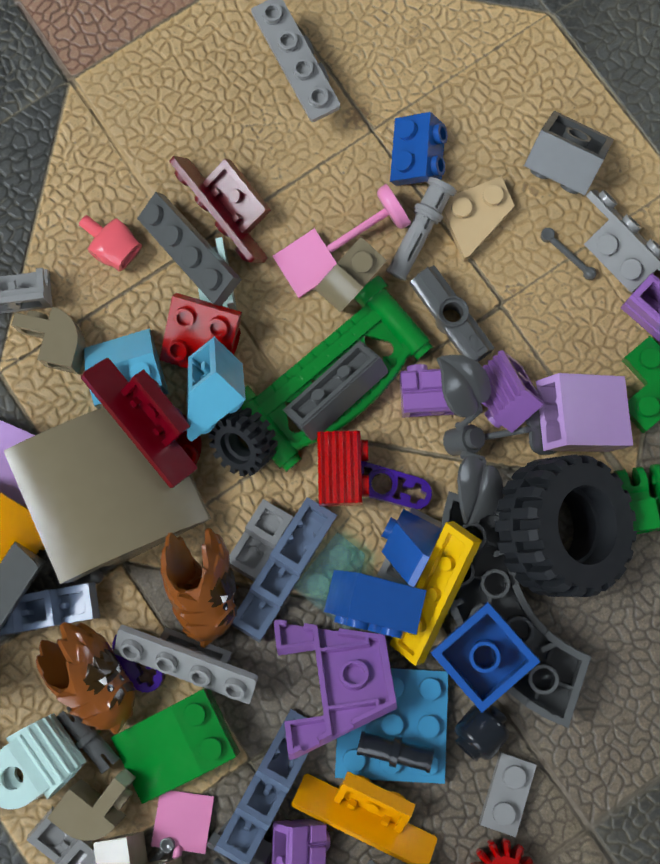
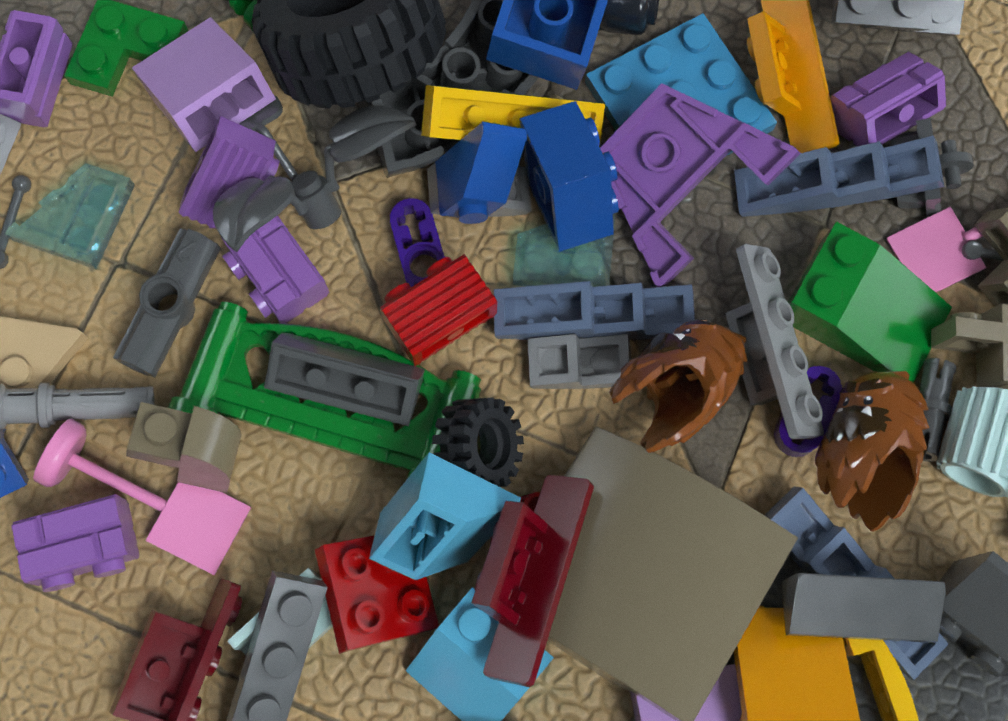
camera: 130 degrees left, 5 degrees down
(336, 190) = (74, 542): none -> medium lavender brick
(395, 751) = (709, 66): black pin -> none
(543, 293) = (77, 217): none -> clear light blue wing

